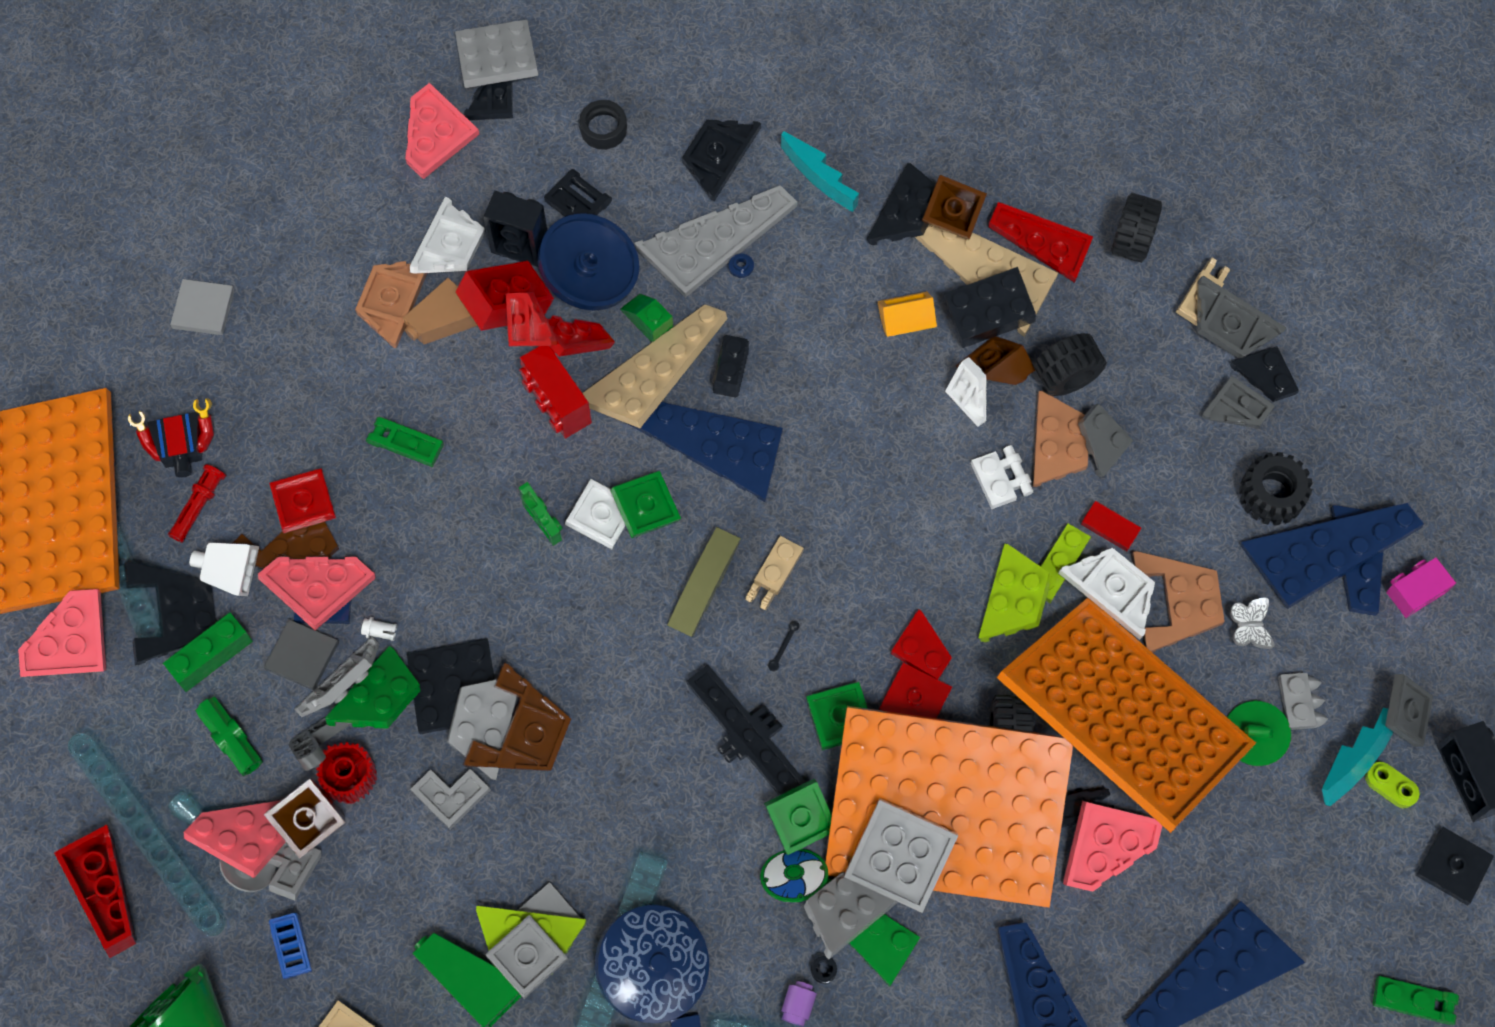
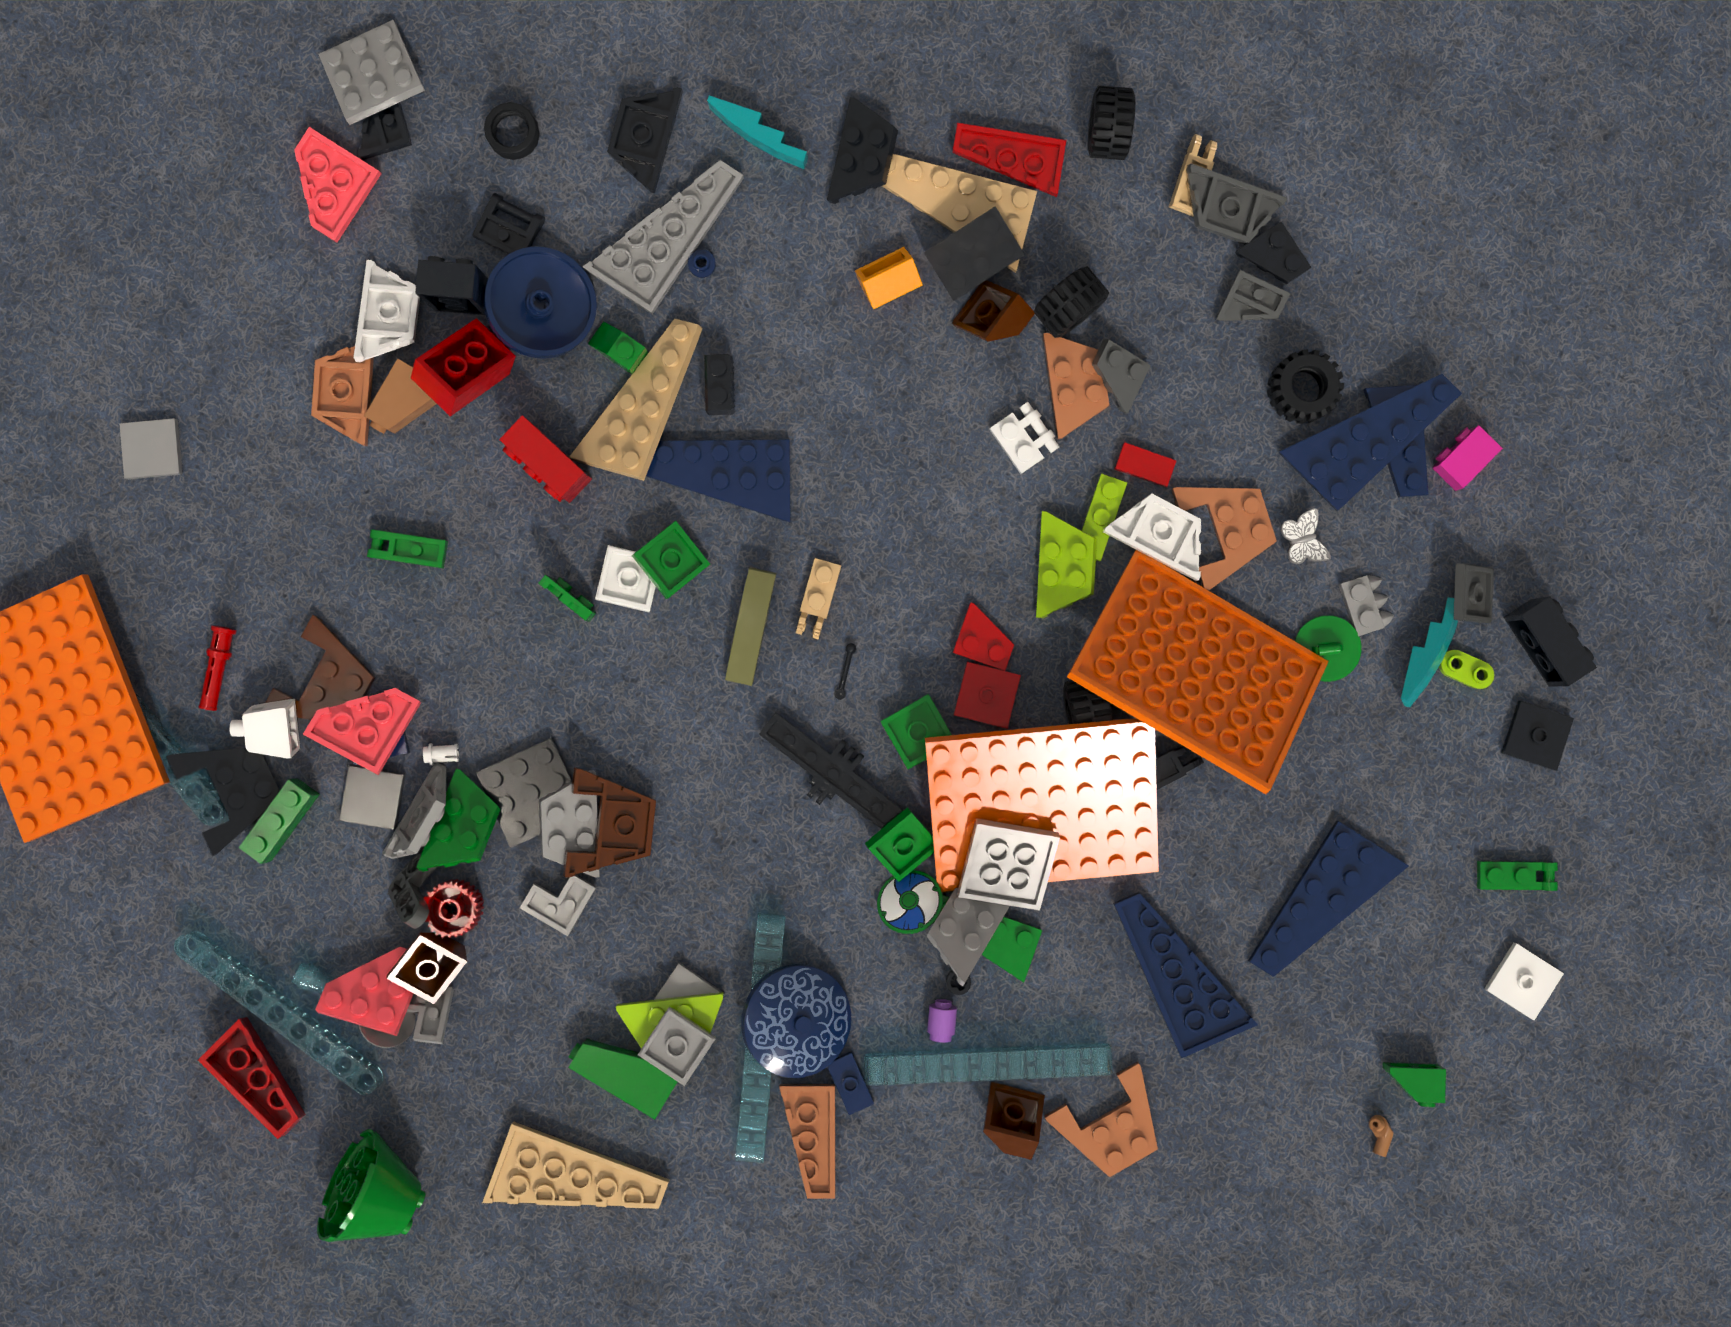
camera: 10 degrees left, 20 degrees up
(67, 639) = (136, 842): coral plate -> none
(177, 439) = (172, 605): torso -> none
(228, 736) = (327, 897): green piece -> none
(275, 924) = (455, 1068): blue slope -> none
(302, 500) = (322, 641): red plate -> none
(527, 321) = (495, 400): red wing -> none
(578, 336) = (547, 396): red wing -> none
(954, 207) = (912, 146): reddish brown slope -> none
(969, 391) = (973, 354): white wing -> none
(1107, 844) = (1198, 800): coral plate -> none

